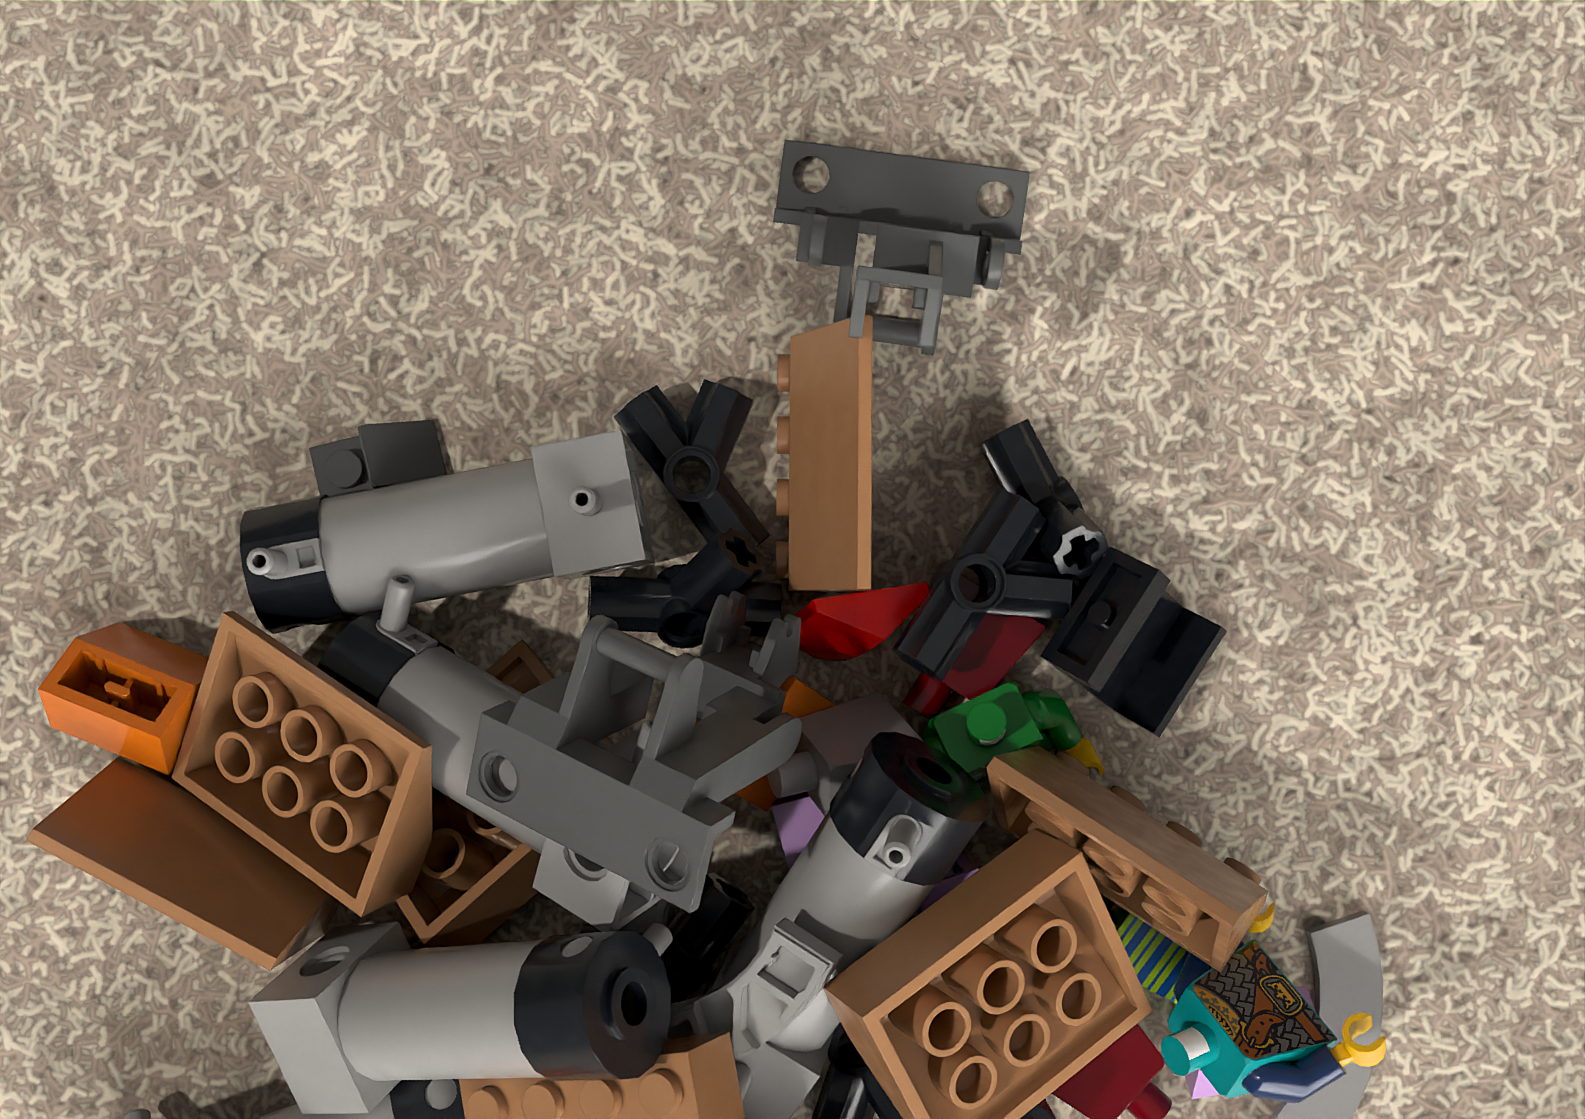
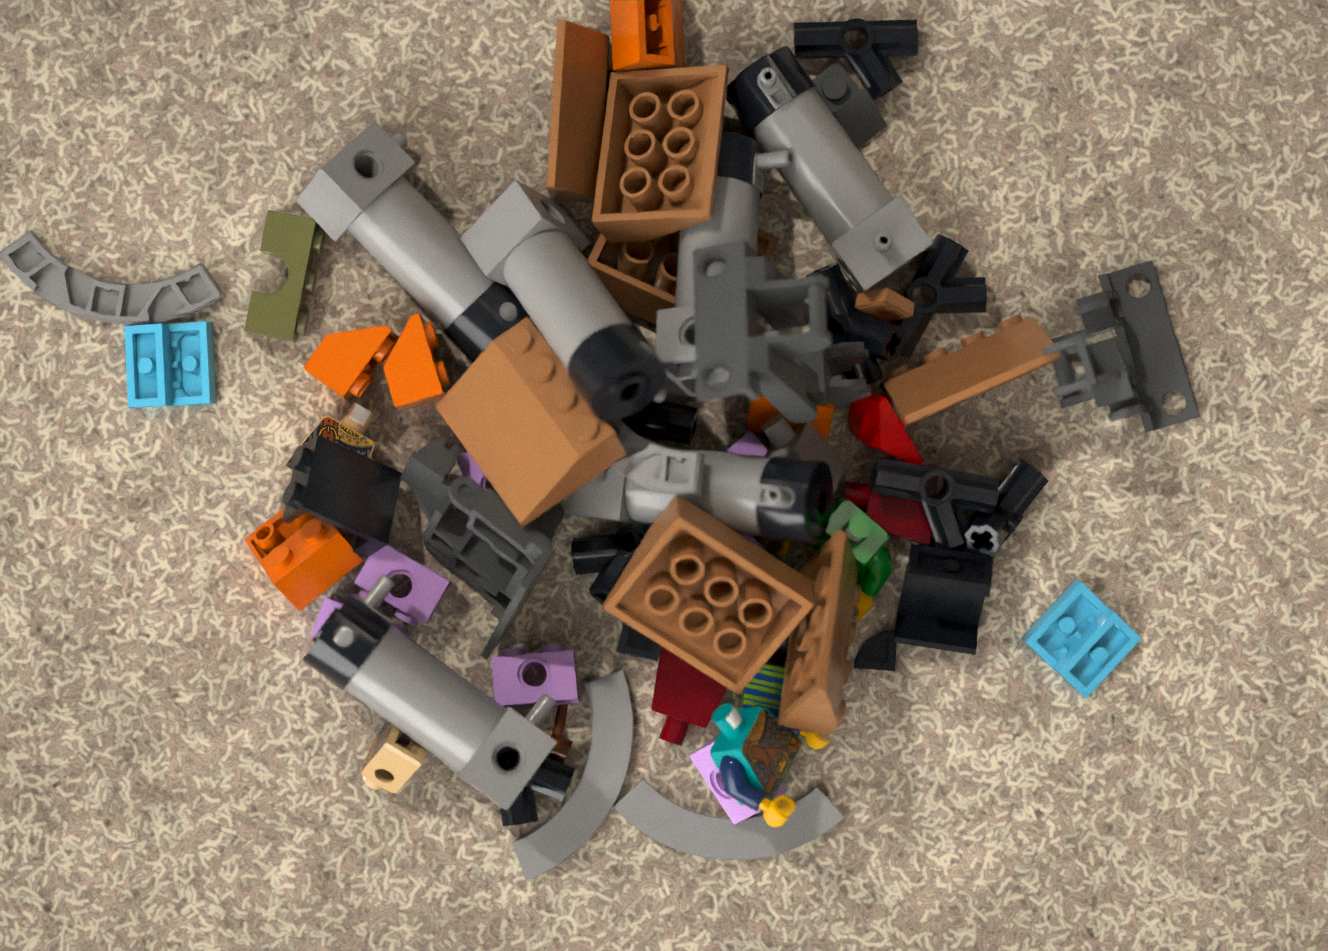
camera: 75 degrees right, 0 degrees up
(328, 405) = (870, 62): none -> black piece
(679, 537) = (885, 305): none -> medium nougat tile
(1158, 763) = (877, 652): none -> black tile
(1262, 472) = (1081, 638): none -> medium azure slope

